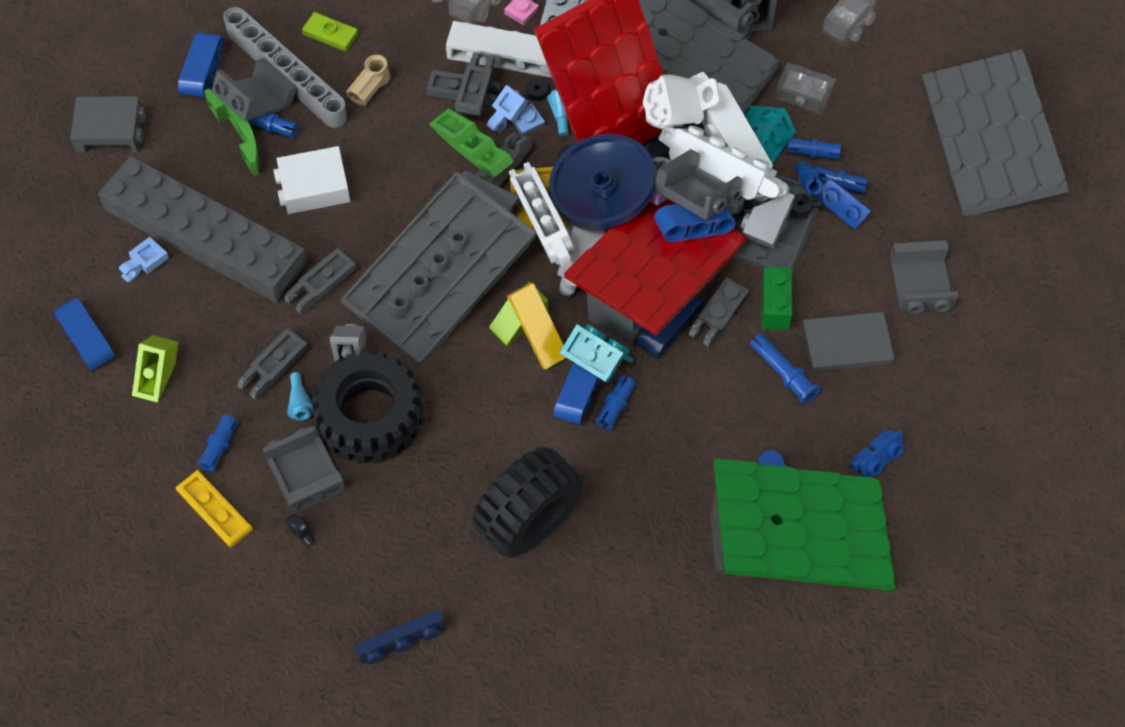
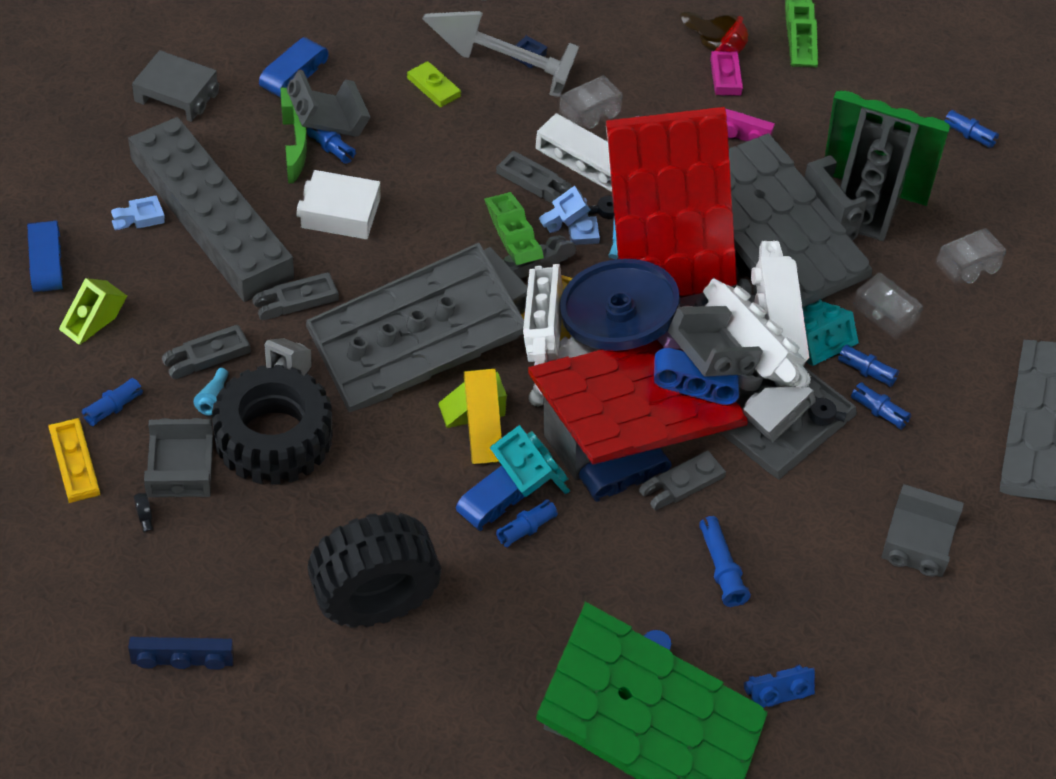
camera: 20 degrees right, 10 degrees down
(262, 45) = (383, 121): light grey beam -> none
(369, 80) = (452, 136): tan piece -> none
(474, 85) = (545, 176): dark grey hinge -> none
(677, 101) = (735, 256): white piece -> none
(776, 298) = (748, 489): green brick -> none
(808, 177) = (844, 388): blue pin -> none
(842, 203) = (870, 427): blue hinge -> none
(848, 341) = (807, 563): dark grey tile -> none

